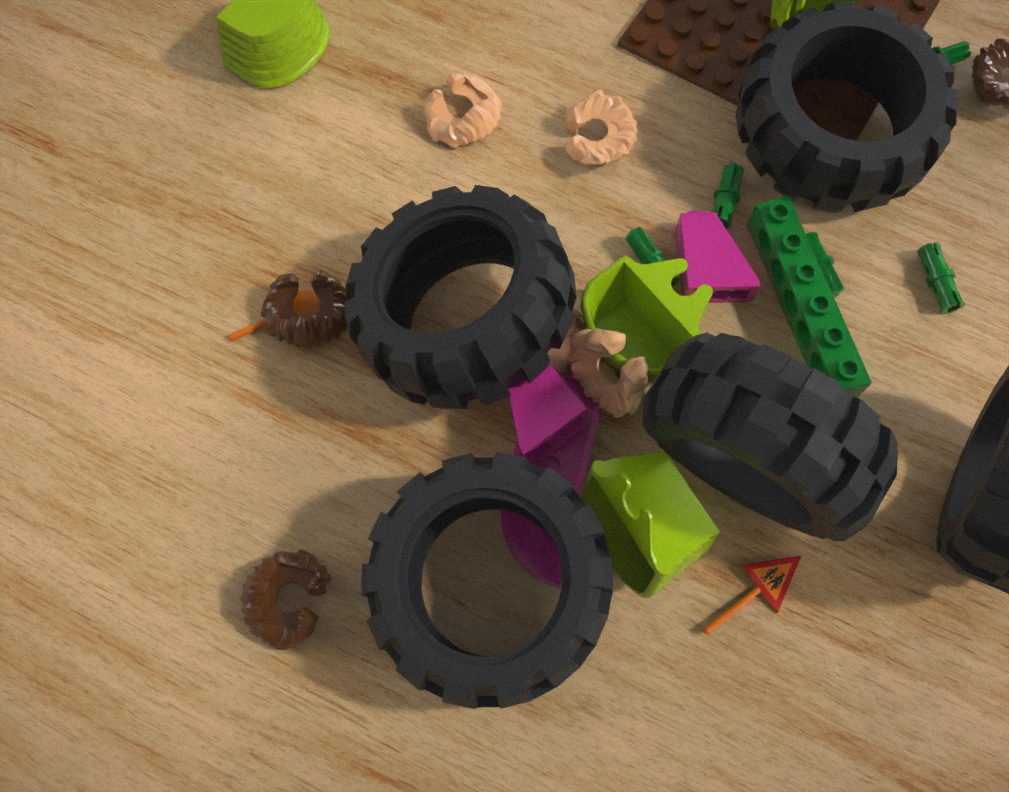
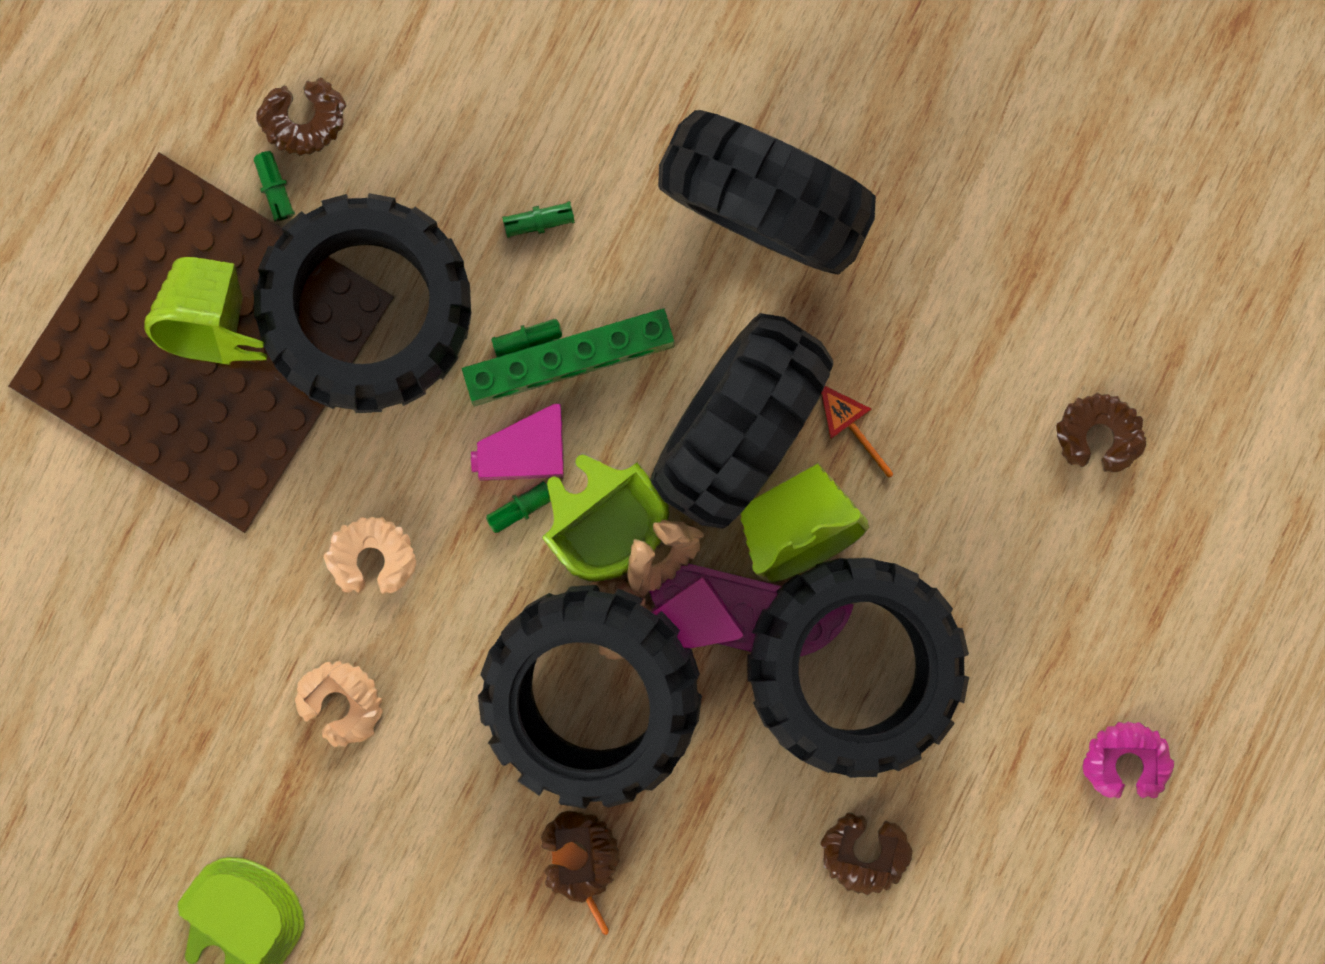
camera: 90 degrees left, 15 degrees up
(728, 193) = (444, 425): green axle -> none

